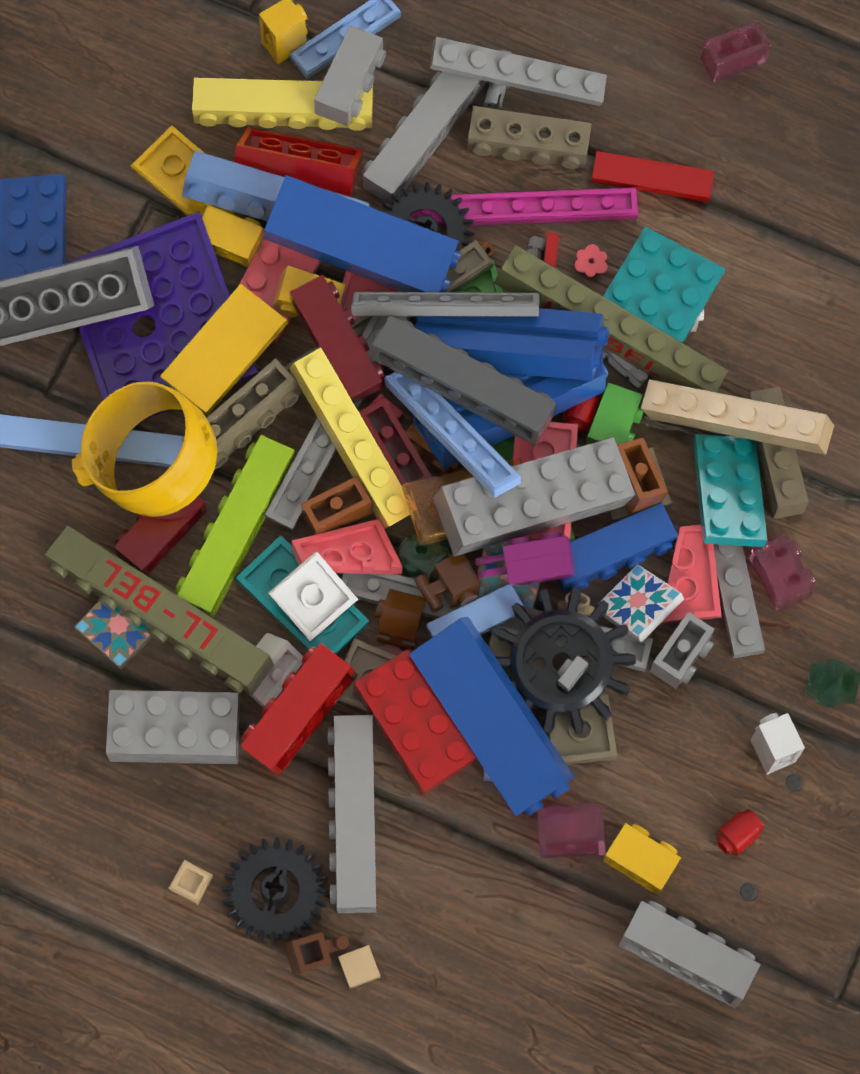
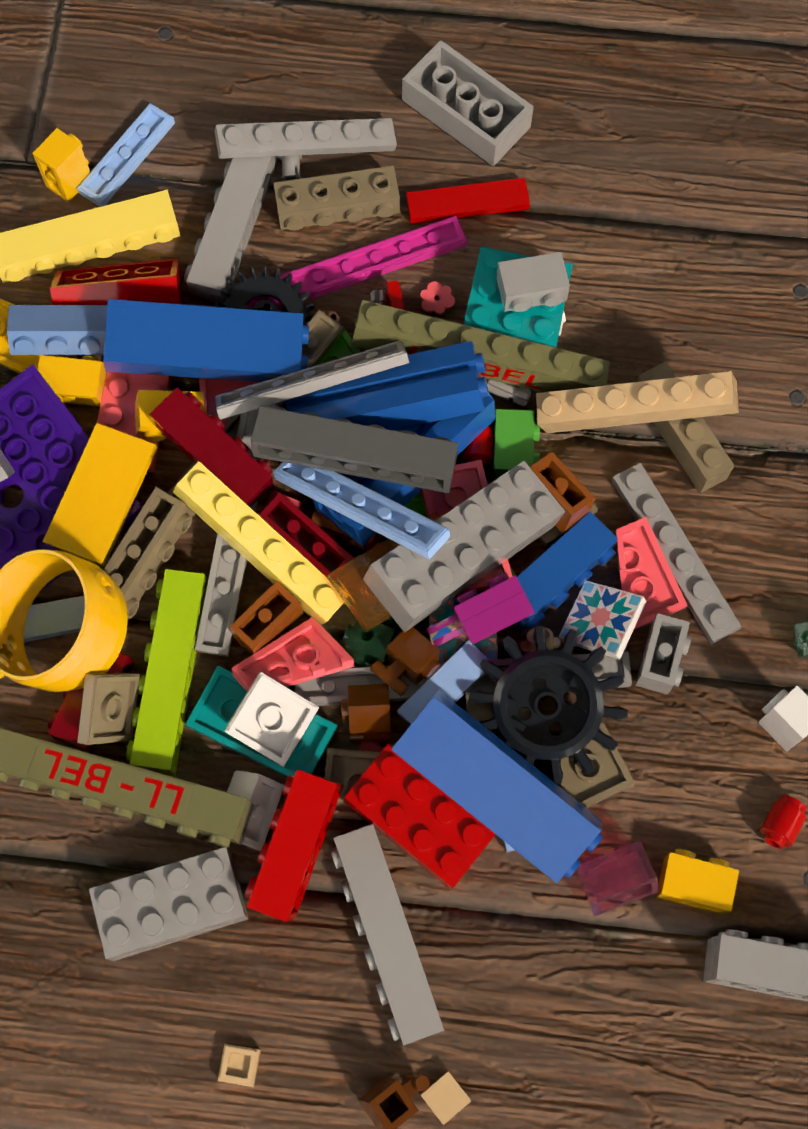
camera: 15 degrees left, 0 degrees up
(112, 634) = (75, 824): tile -> none
(173, 540) = (108, 707): none -> dark tan tile
(284, 861) = (331, 1082): black gear -> none
(350, 76) = (142, 188): light grey brick -> none
(571, 672) = (565, 714): light grey plate -> none
(678, 276) = (533, 282): none -> light grey brick
(682, 82) = (467, 102): none -> light grey brick
(729, 491) = (652, 479): teal plate -> none
(735, 51) = (510, 56): clear pink brick -> none
(782, 572) = (730, 543): clear pink brick -> none

